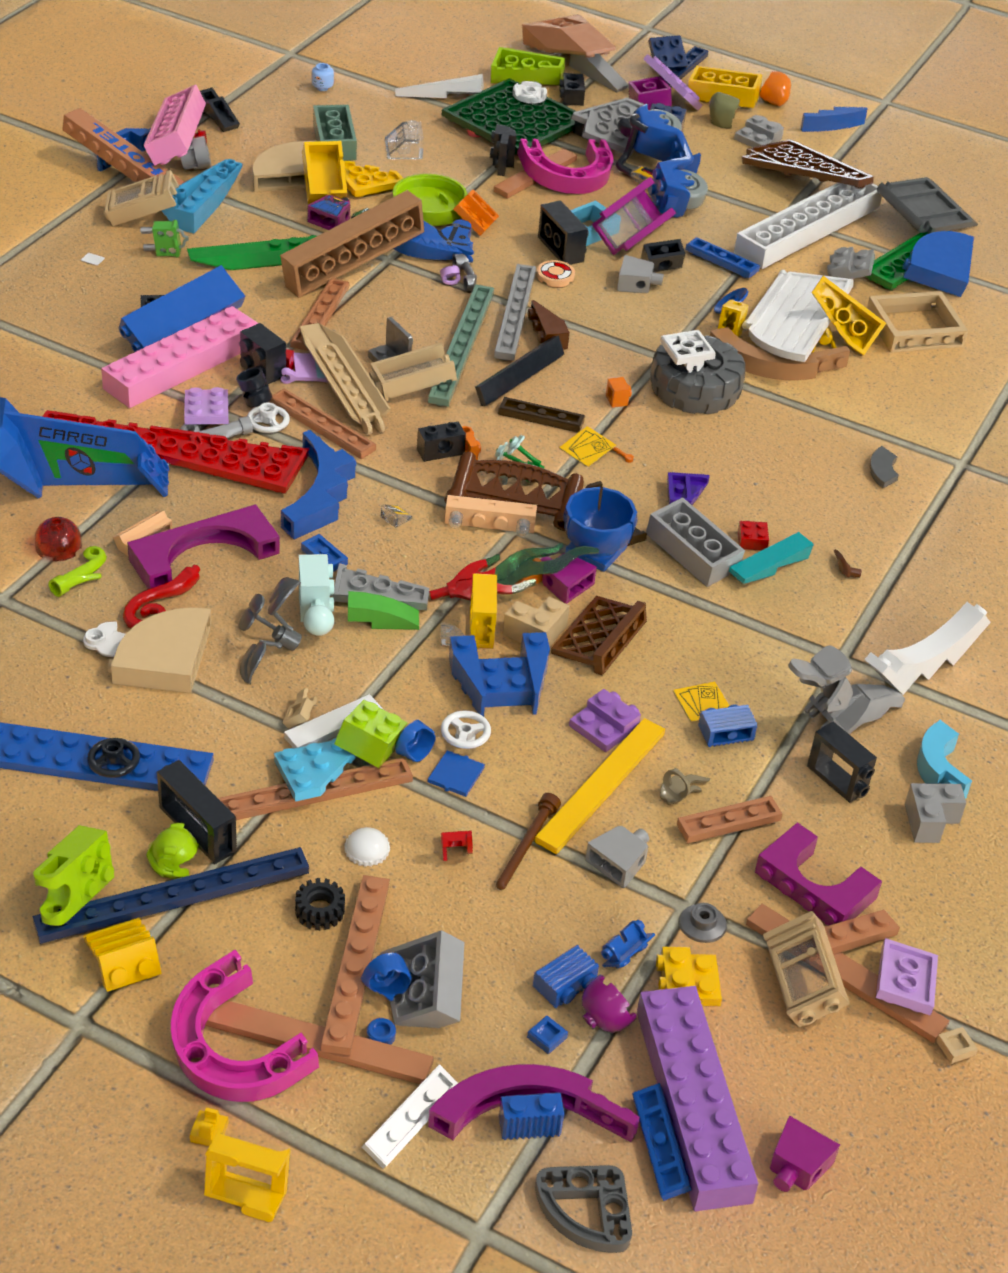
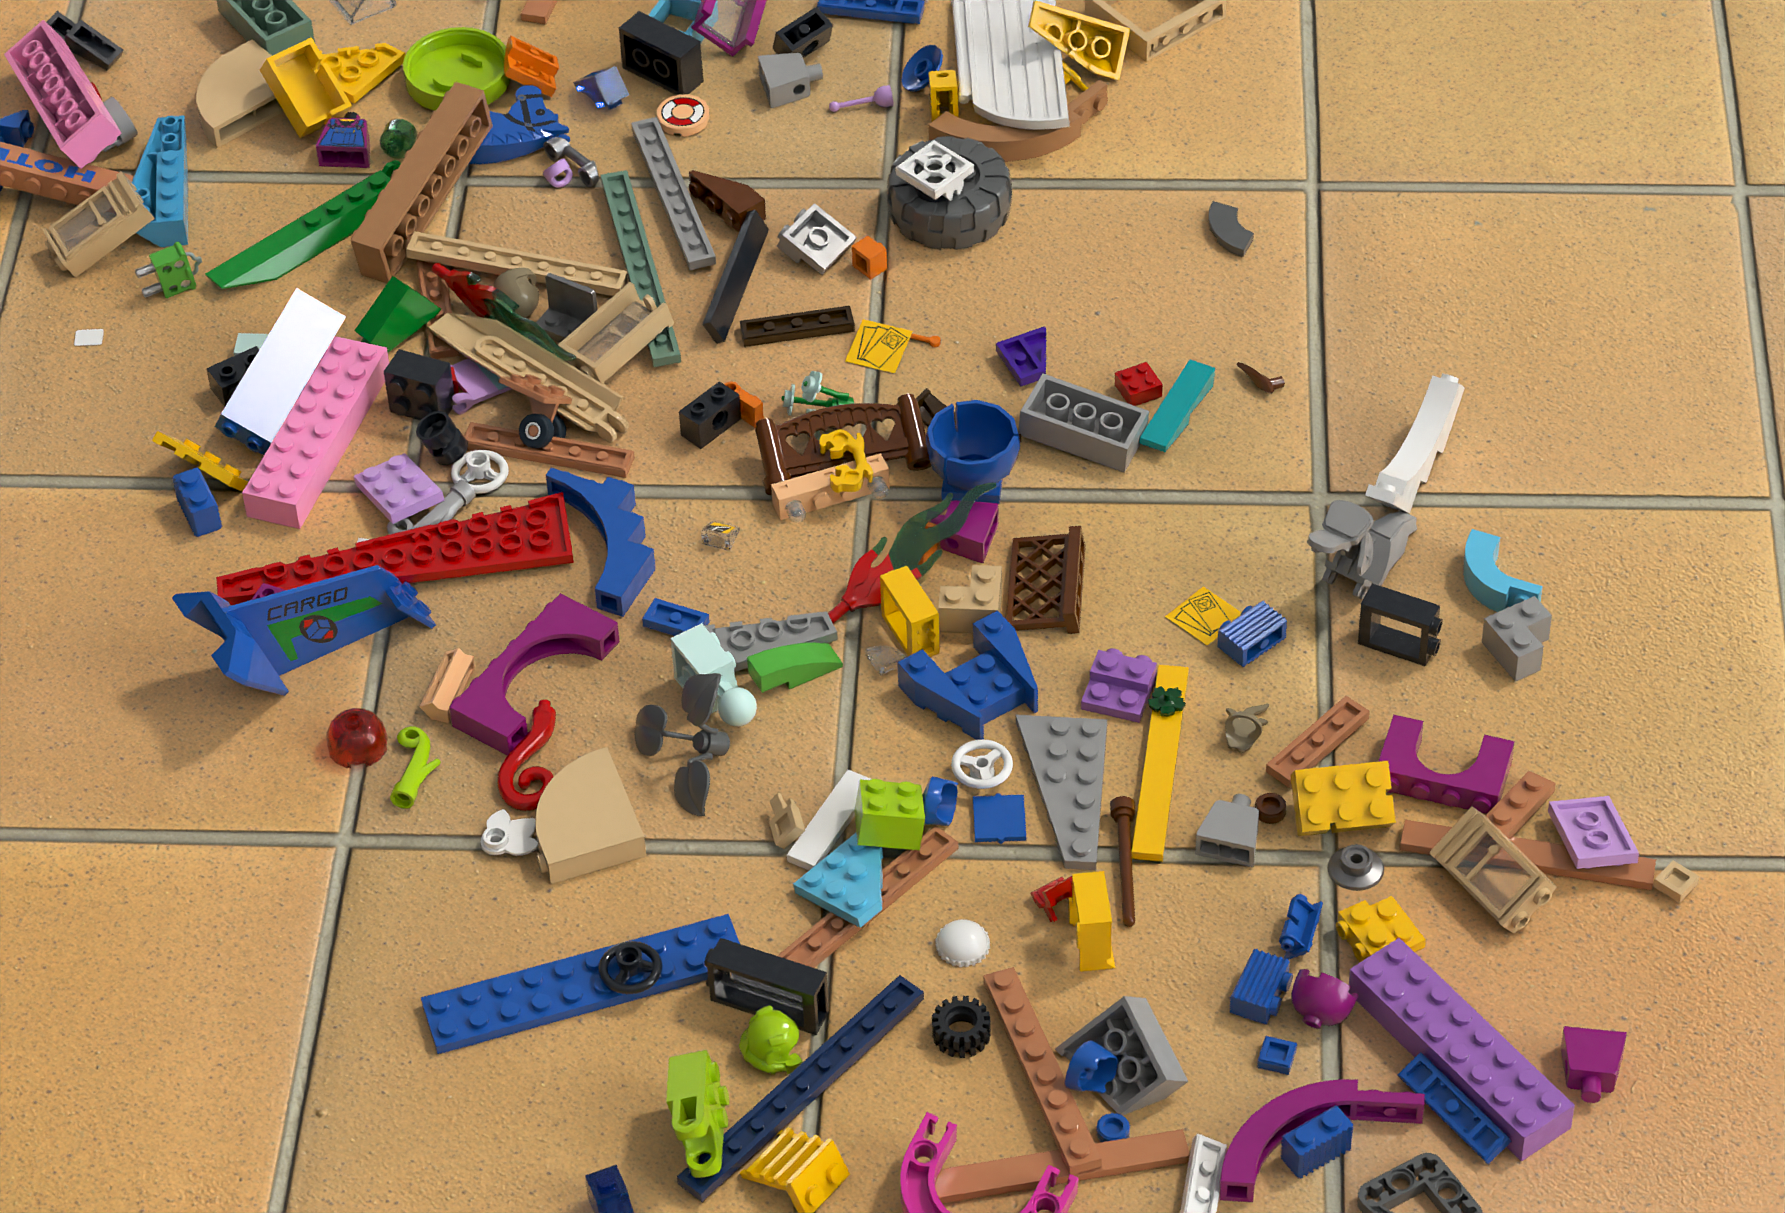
camera: 20 degrees left, 5 degrees up
(74, 366) = (197, 502): none -> blue brick
(94, 339) = (207, 462): none -> yellow wing
(282, 309) = (395, 315): none -> green slope
(326, 404) = (540, 427): none -> plate
(346, 326) = (494, 304): none -> piece
(366, 327) = (519, 289): none -> dark tan helmet
(379, 309) = (499, 260): none -> tan plate
(463, 861) = (1092, 916): none -> yellow piece
(508, 487) = (845, 478): none -> yellow helmet
(514, 239) = (603, 87): none -> clear blue arch
(527, 765) = (1069, 774): none -> light grey wing
(588, 368) = (815, 239): none -> plate
(631, 744) = (1166, 701): none -> dark green plant
(663, 851) = (1271, 808): none -> reddish brown tile
(694, 307) = (882, 97): none -> lavender hinge
(719, 863) = (1343, 795): none -> yellow piece

